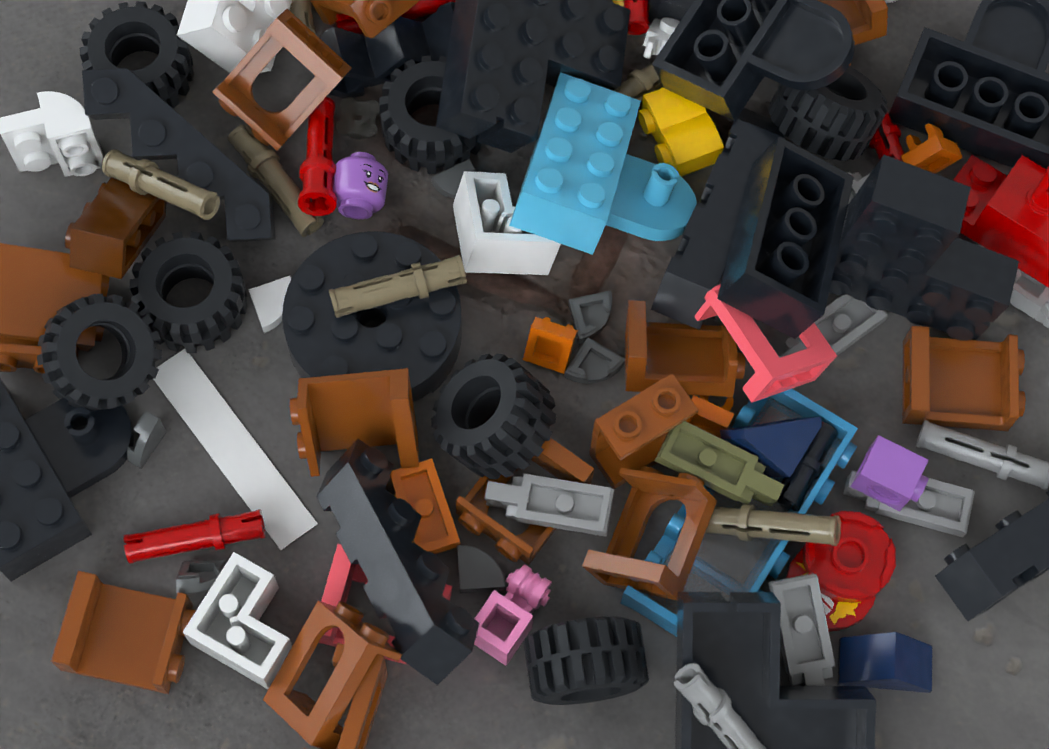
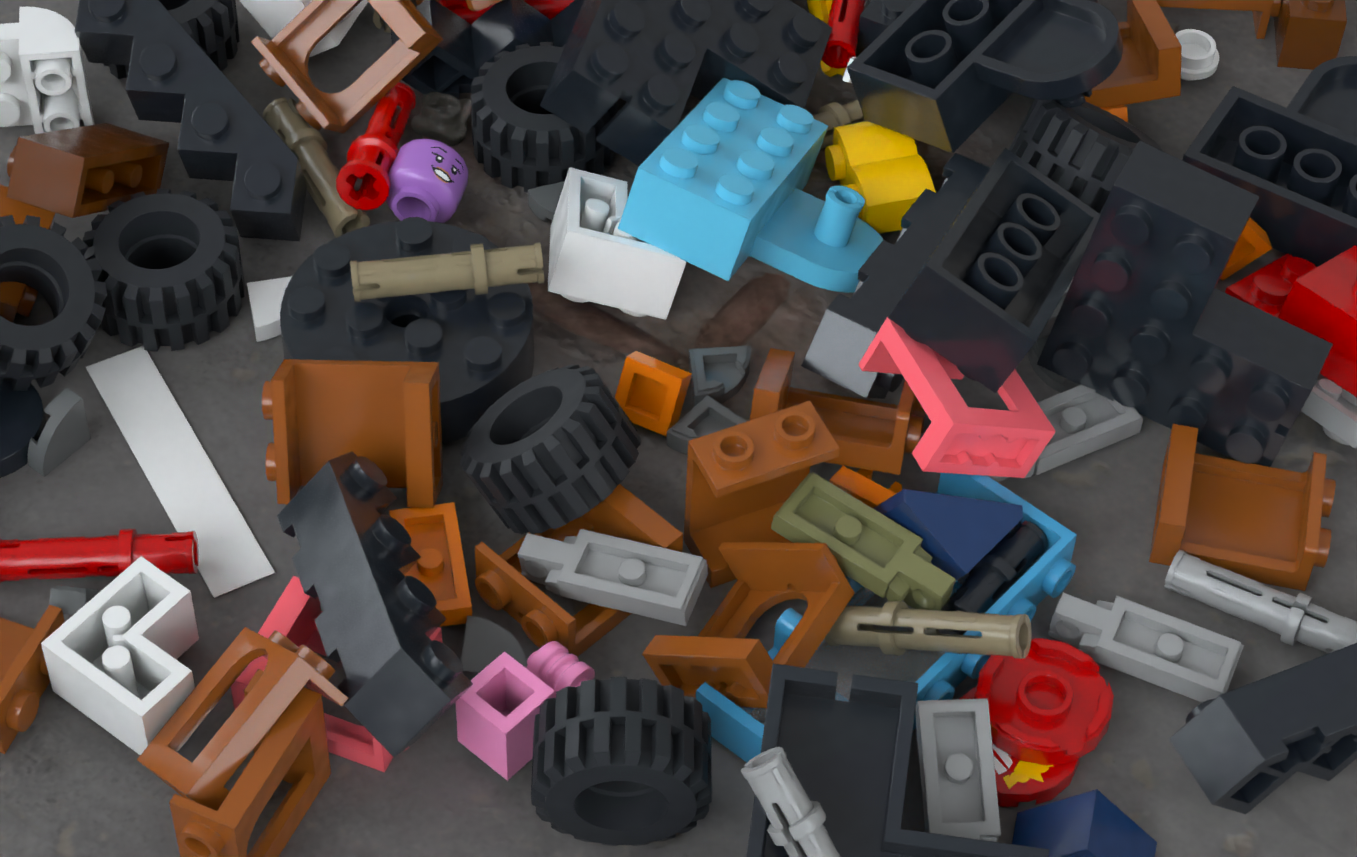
camera: 10 degrees right, 20 degrees down
(145, 177) = (140, 120): dark tan pin -> none
(891, 474) = (1116, 591): medium lavender brick -> none

